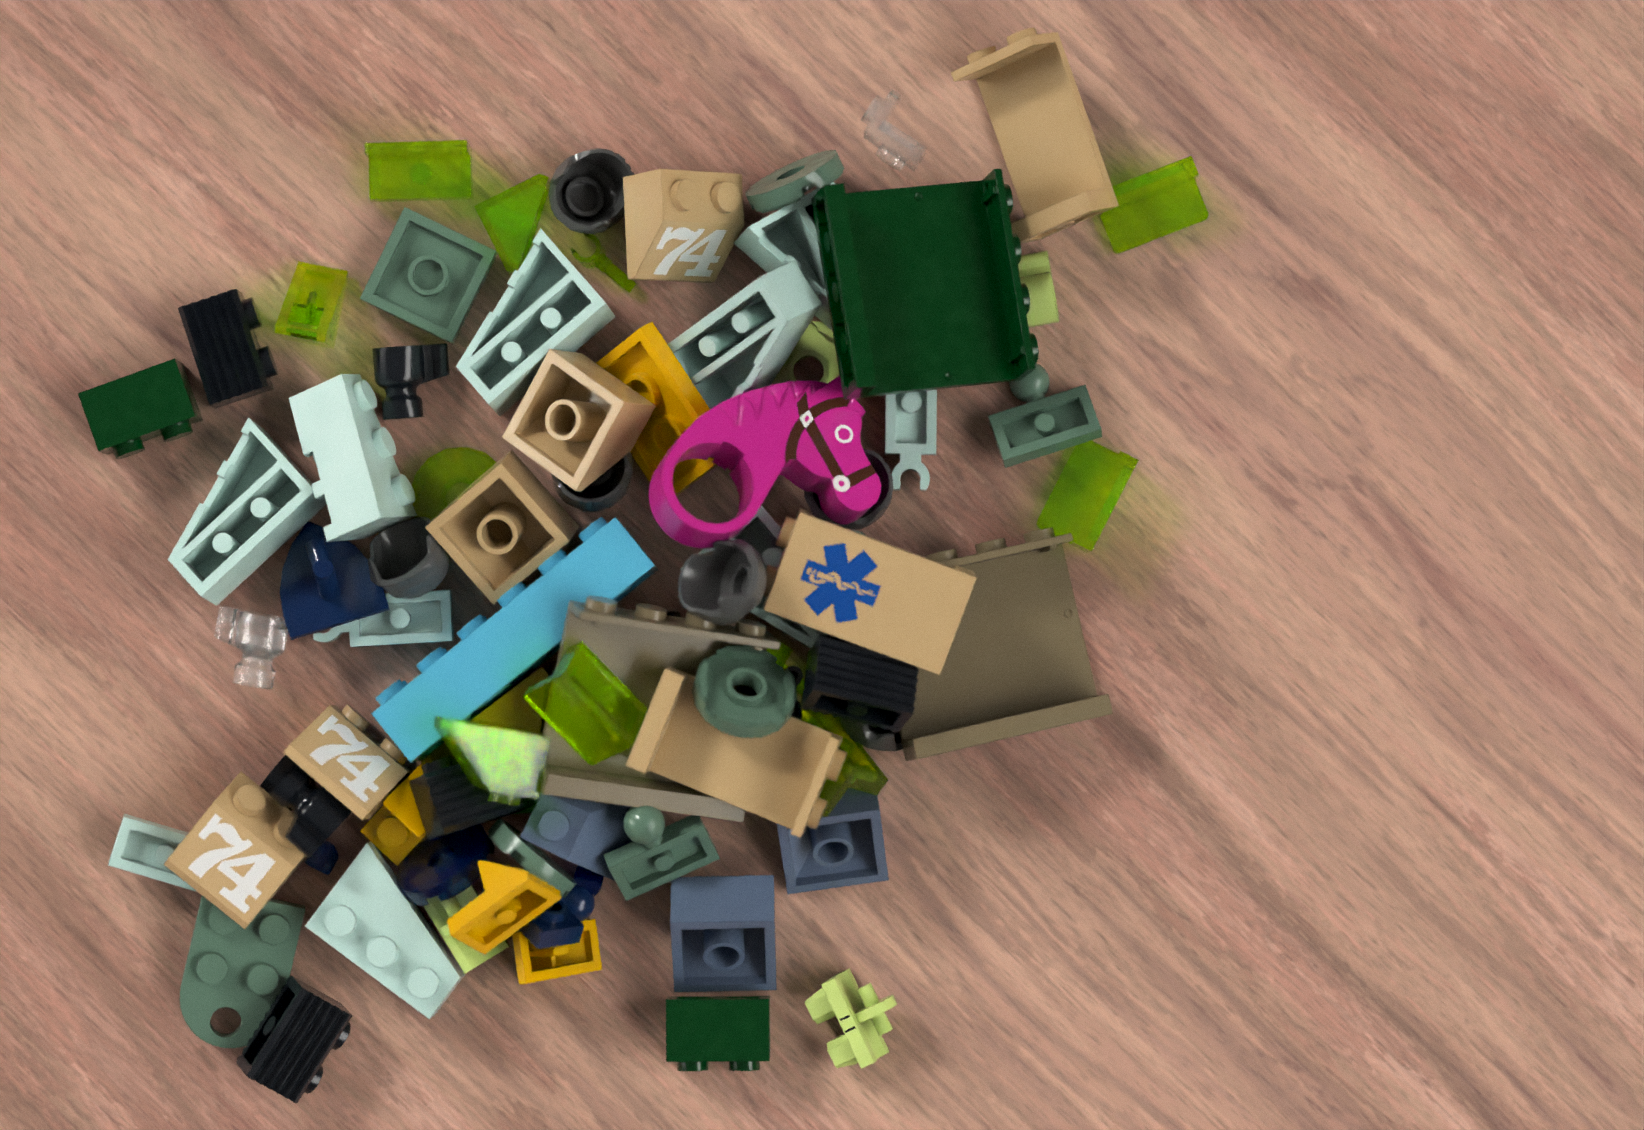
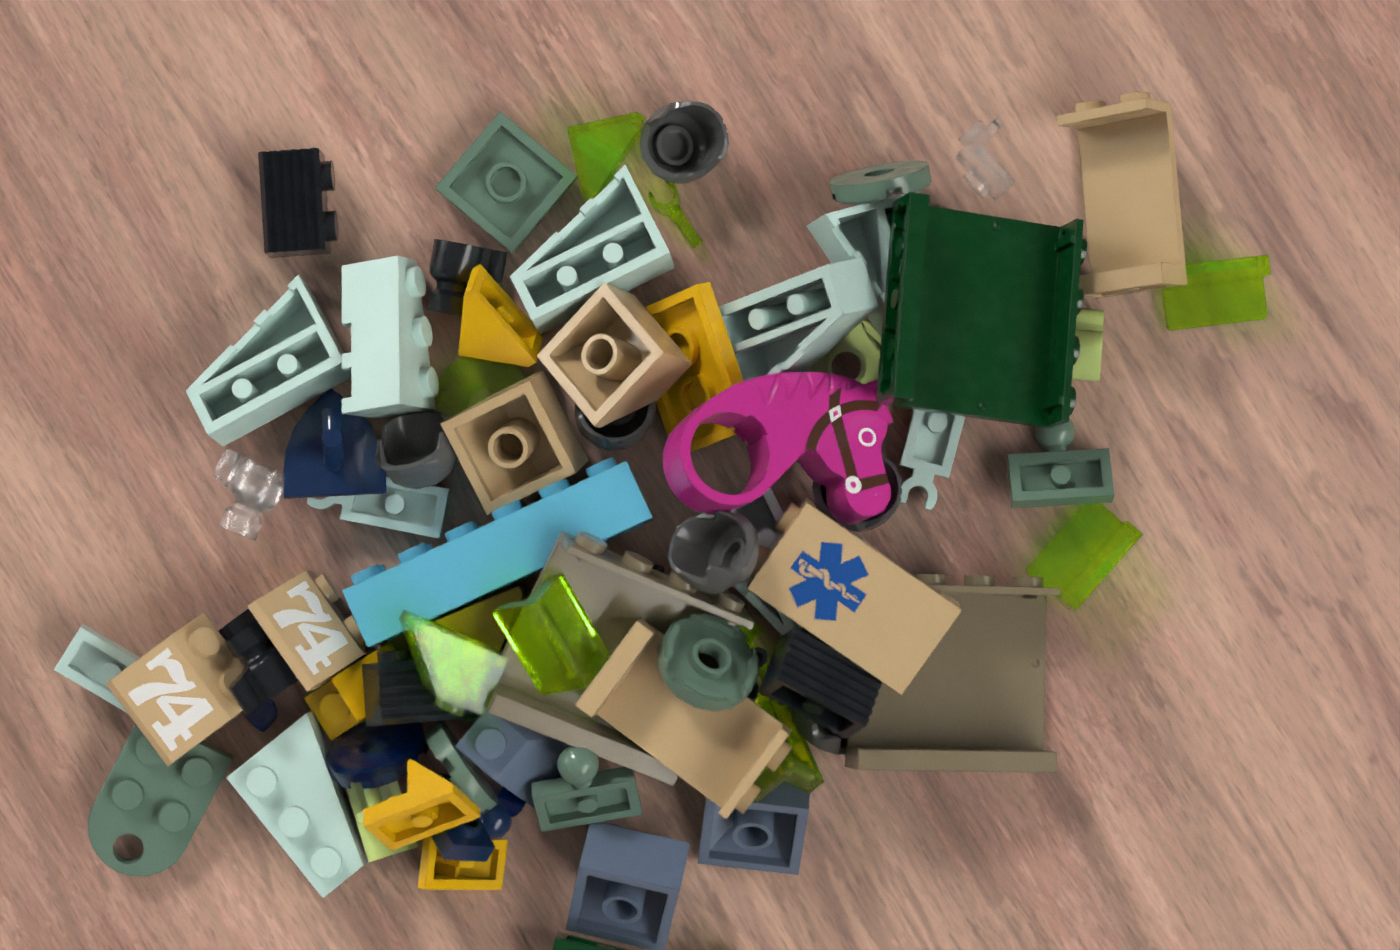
camera: 15 degrees right, 0 degrees up
(140, 409) = (198, 239): dark green brick -> none
(295, 1040) = (189, 884): black brick -> none
(313, 305) = (388, 183): clear neon green slope -> none
(420, 170) = (523, 80): clear neon green panel -> none
(453, 417) = (494, 324): none -> yellow slope
(681, 223) = (761, 194): tan slope -> none

